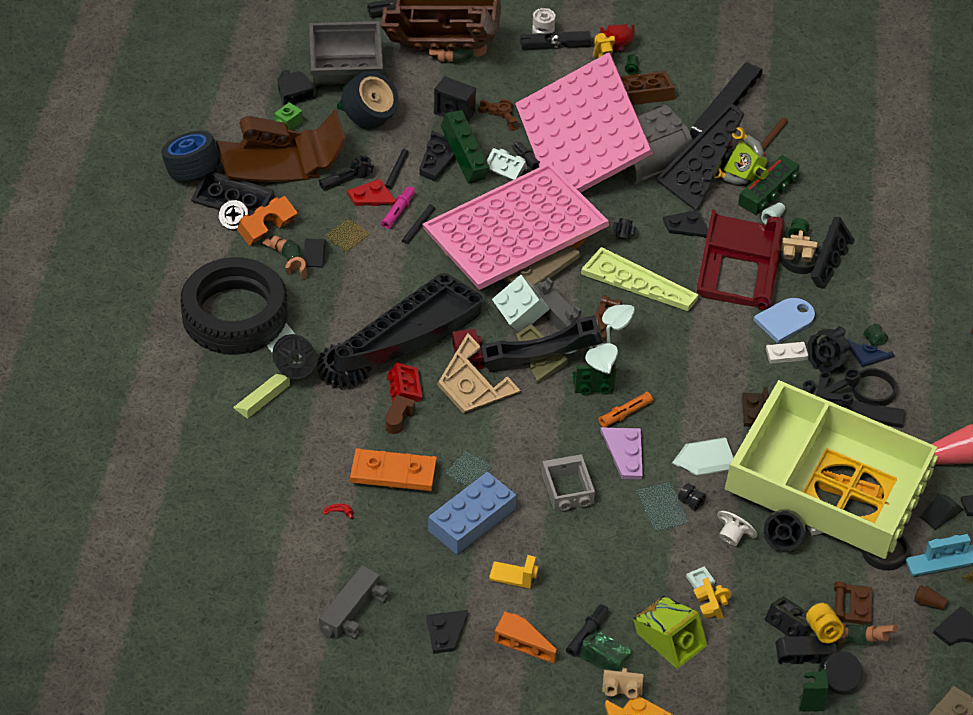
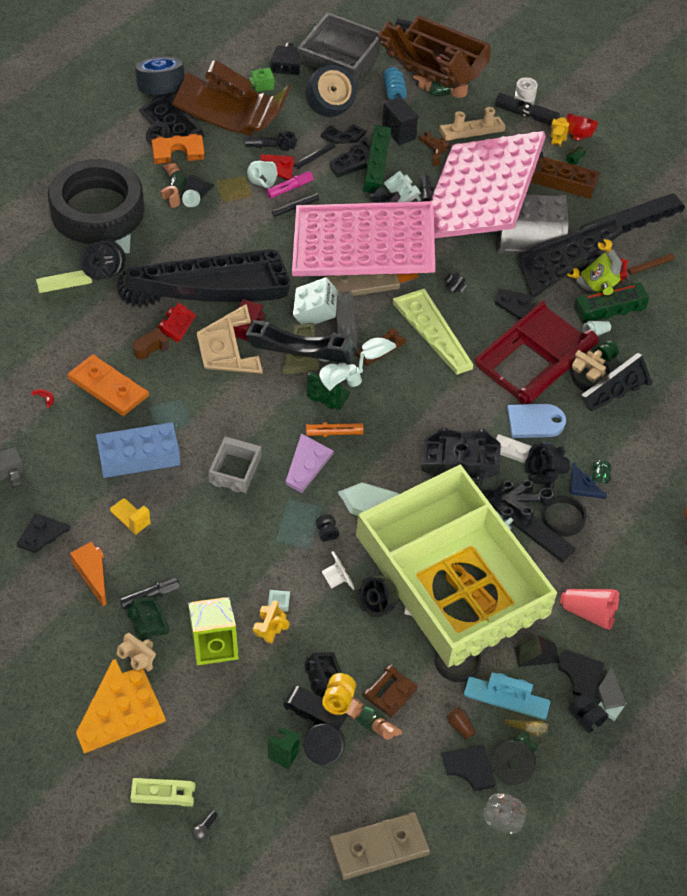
camera: 30 degrees right, 5 degrees up
(318, 262) = (191, 198): none -> light aqua tile
(368, 203) = (258, 168): none -> light aqua hair
(414, 135) = (351, 135): none -> black tile
(417, 68) = (394, 83): none -> dark azure piece
(500, 179) = (379, 197): none -> black bracket
(518, 81) = (462, 129): none -> tan plate
(768, 366) = (468, 458): none -> black piece

